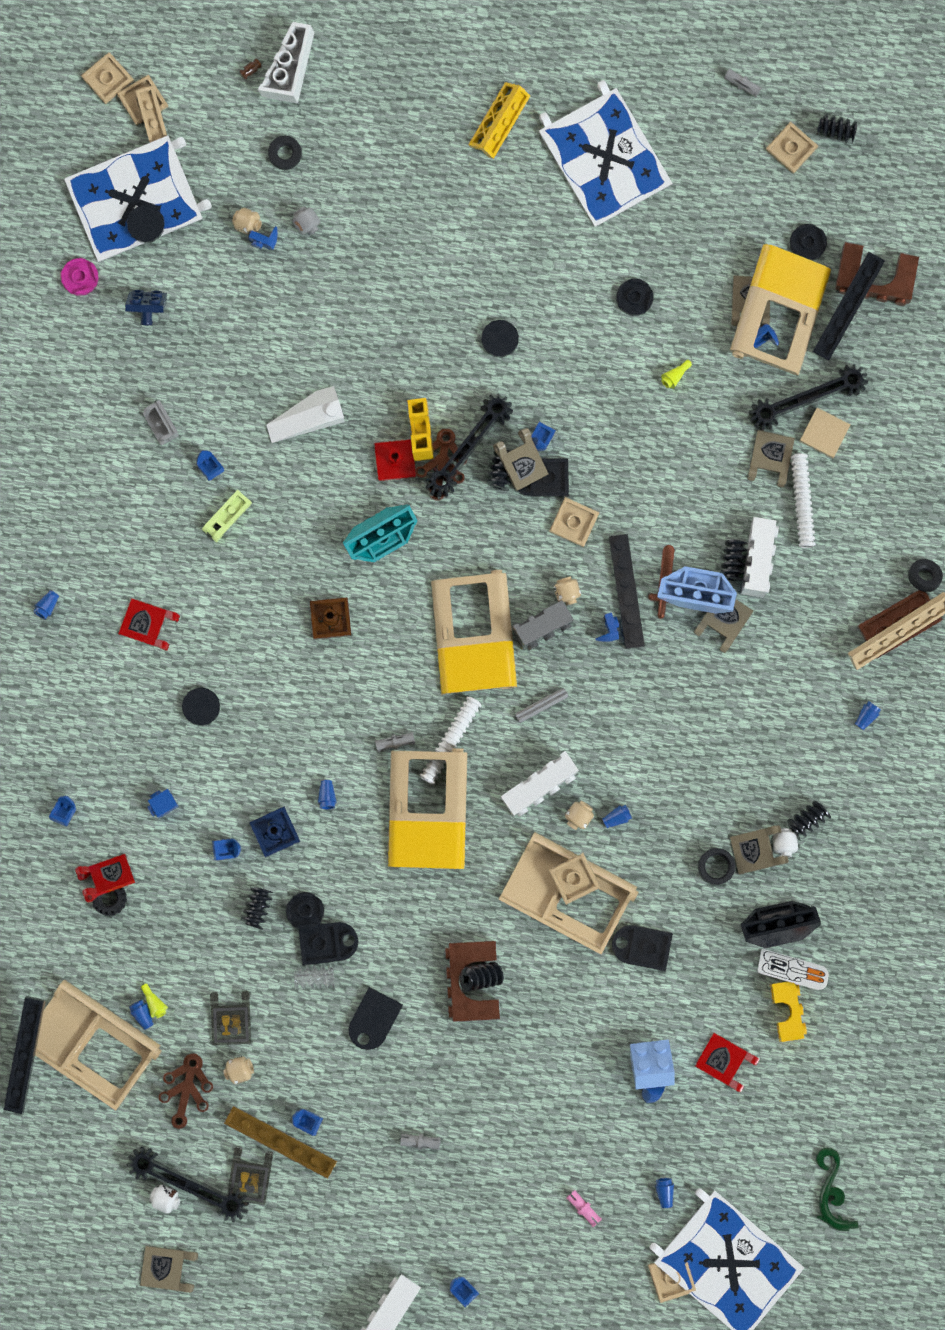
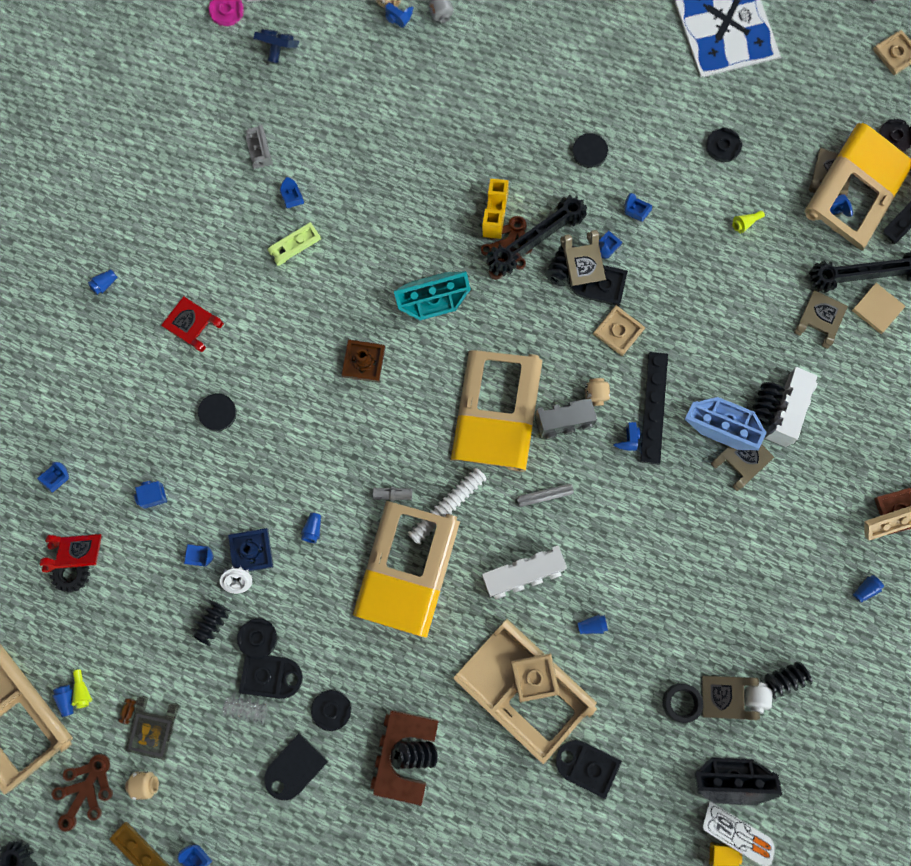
camera: 20 degrees right, 5 degrees down
(203, 1009) = (127, 711): none -> reddish brown piece
(269, 869) = (235, 586): none -> white gear
(311, 414) = (400, 174): white wedge -> none
(392, 958) = (336, 705): none -> black tile
(395, 460) = (464, 233): red tile -> none
(562, 390) = (636, 208): none -> blue plate
(579, 815) = (555, 613): tan head -> none
(666, 570) = (697, 395): copper sword -> none
(803, 500) = (846, 362): white piece -> none

